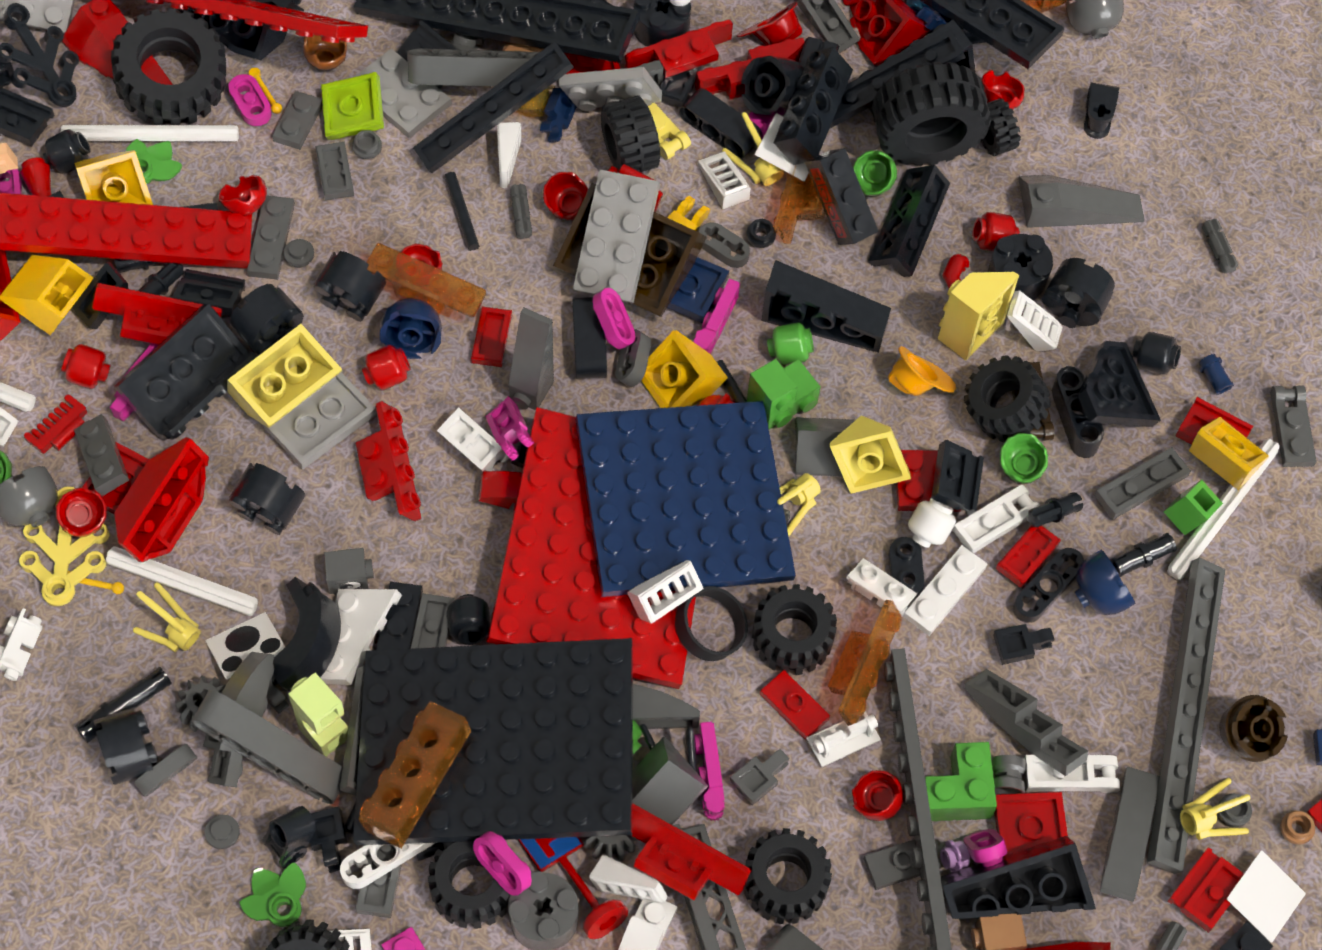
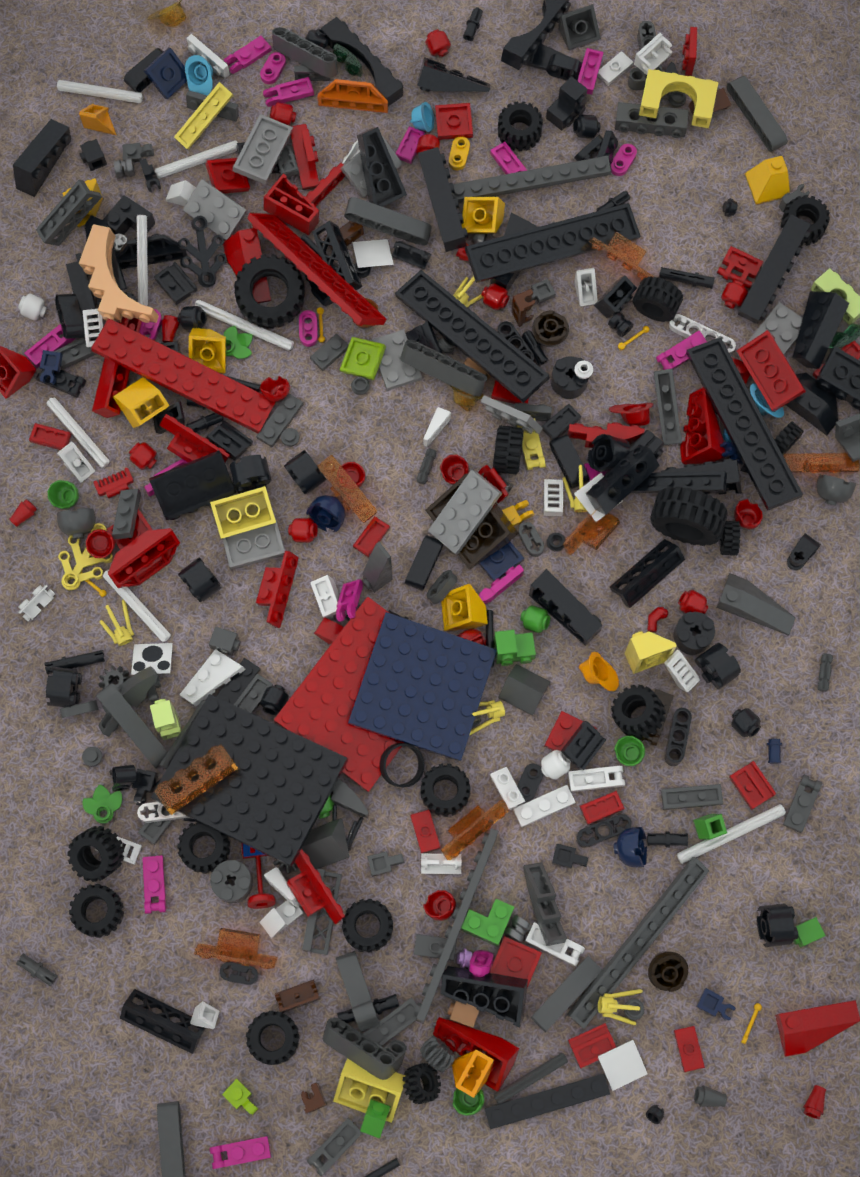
camera: 30 degrees right, 10 degrees up
(314, 639) = (186, 674): black arch -> none
(334, 170) = (334, 394): dark grey plate -> none
(461, 211) = (393, 451): black bar -> none
(493, 107) = (438, 397): black plate -> none
(502, 863) = (217, 844): dark pink plate -> none
(559, 112) = (477, 415): dark blue plate -> none
(613, 318) = (440, 560): dark pink plate -> none
(660, 582) = (374, 732): white slope -> none
(684, 51) = (570, 407): red bracket -> none
(710, 772) = (358, 848): dark pink hinge -> none
(841, 196) = (609, 543): black brick -> none
(869, 455) = (538, 709): light yellow slope -> none
(875, 172) = (641, 534): bright green hair -> none
(1054, 510) = (630, 789): black axle -> none
(1115, 390) = (706, 734): black plate -> none
(1227, 452) = (751, 803): yellow slope -> none
(1304, 821) = (670, 1036): medium nougat plate -> none

